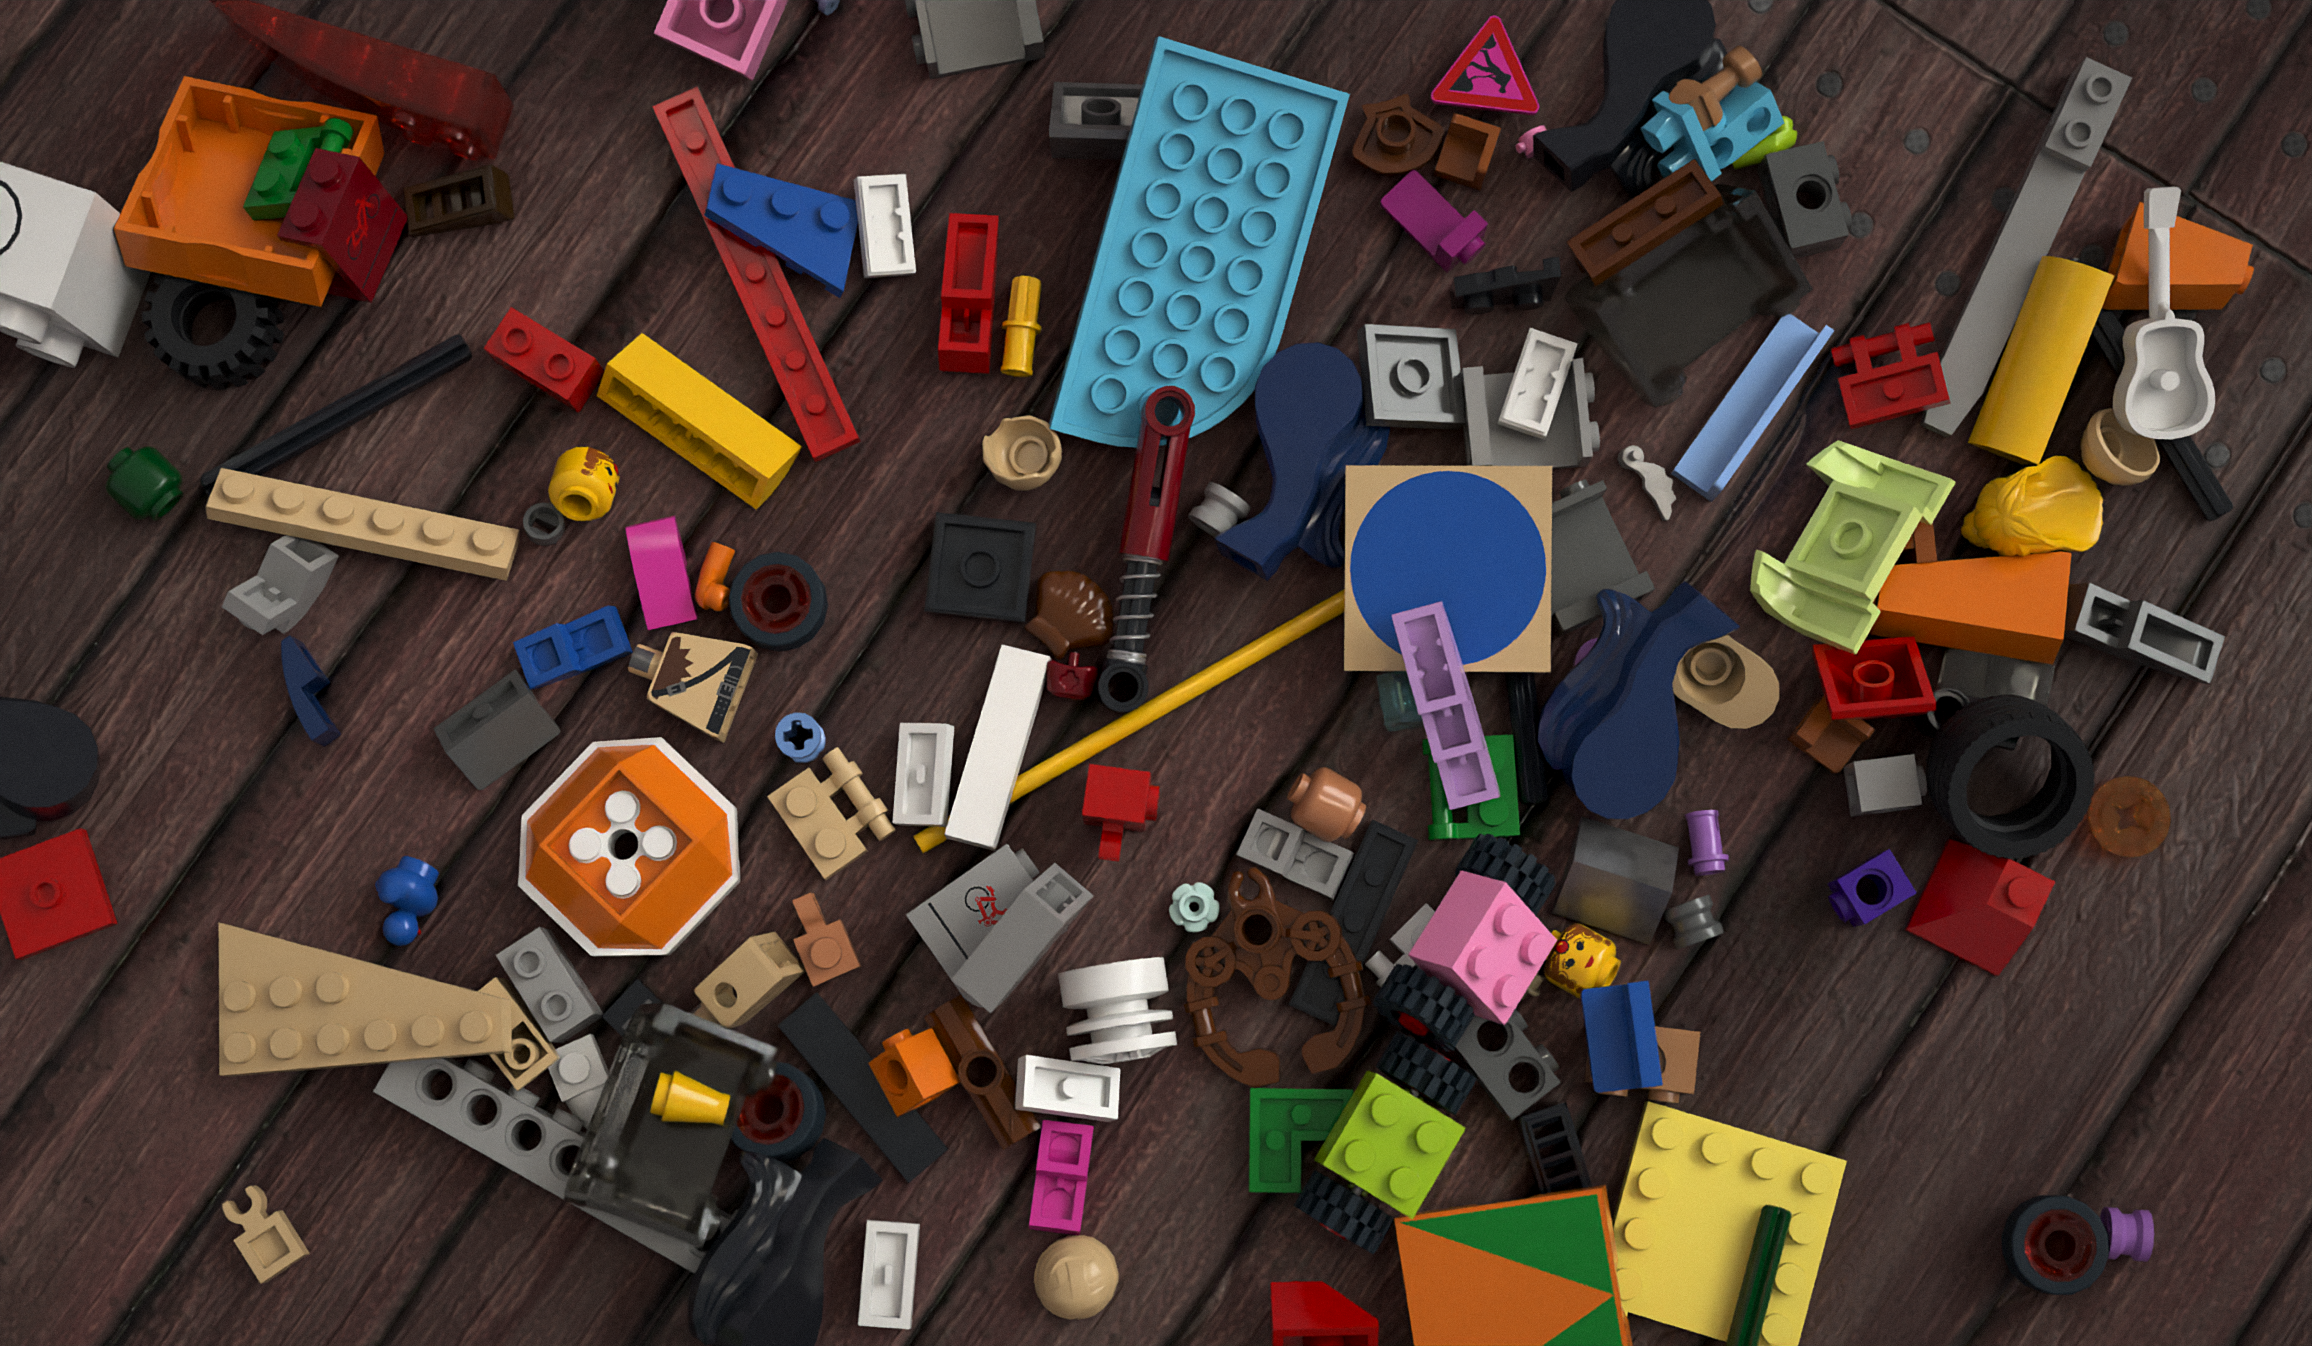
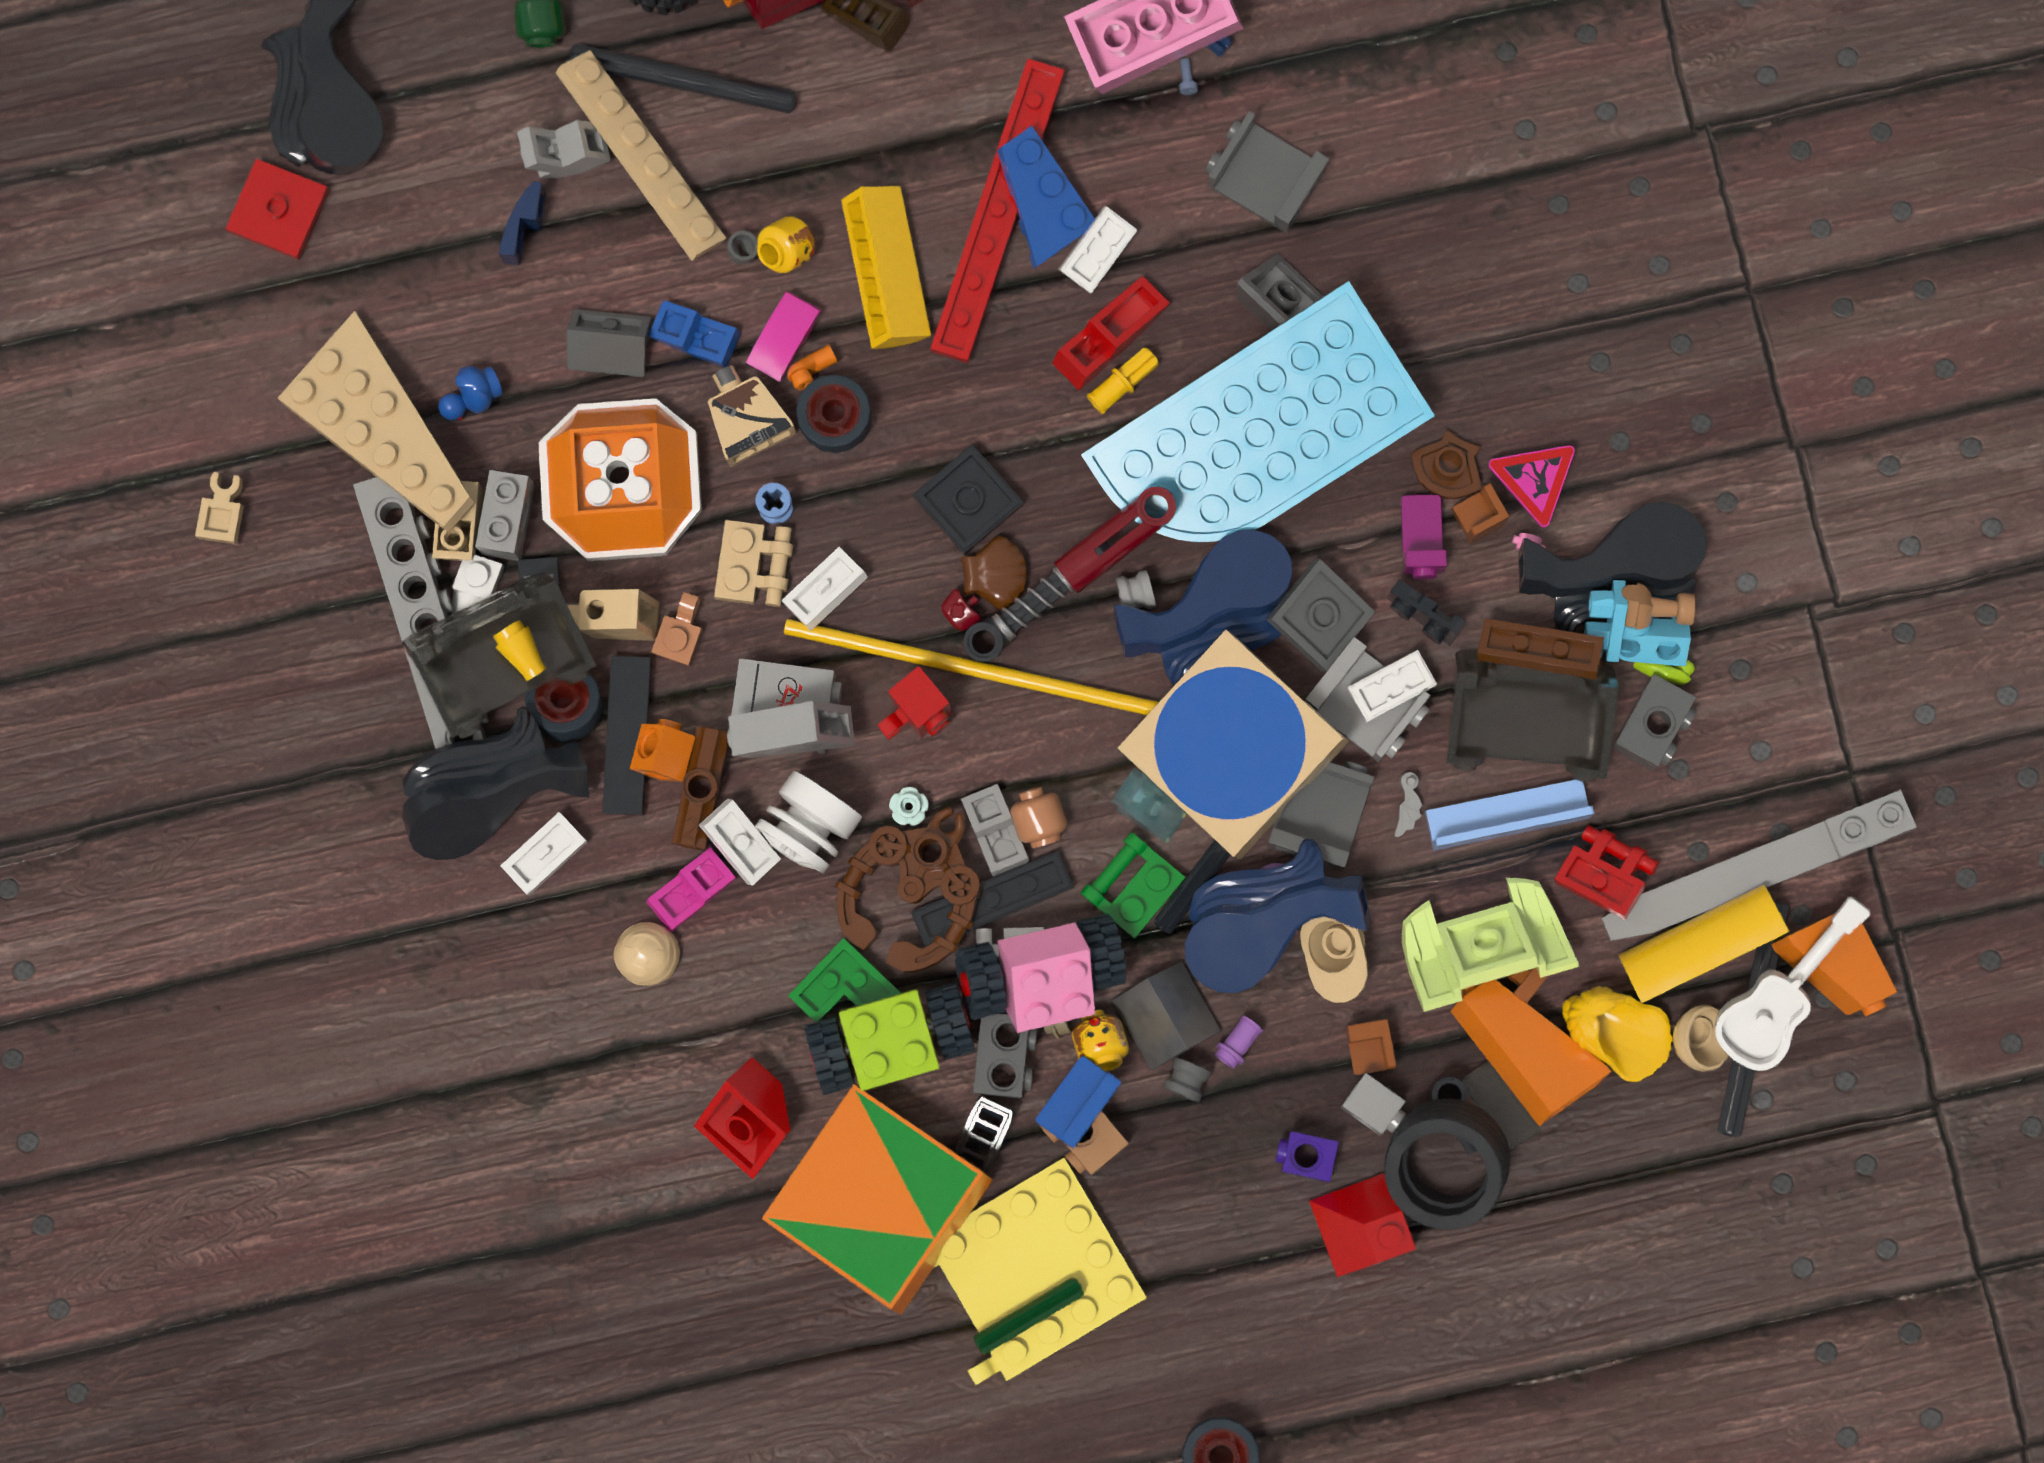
camera: 50 degrees right, 0 degrees up
(544, 359) = (829, 152): red brick -> none
(998, 748) = (881, 612): white tile -> none
(1022, 452) = (1053, 454): tan hair -> none
(1446, 705) = (1156, 821): lavender slope -> none
(1875, 683) = (1418, 1037): red slope -> none
(2141, 633) = (1611, 1157): dark grey slope -> none
(2151, 814) = (1517, 1269): clear orange gear -> none

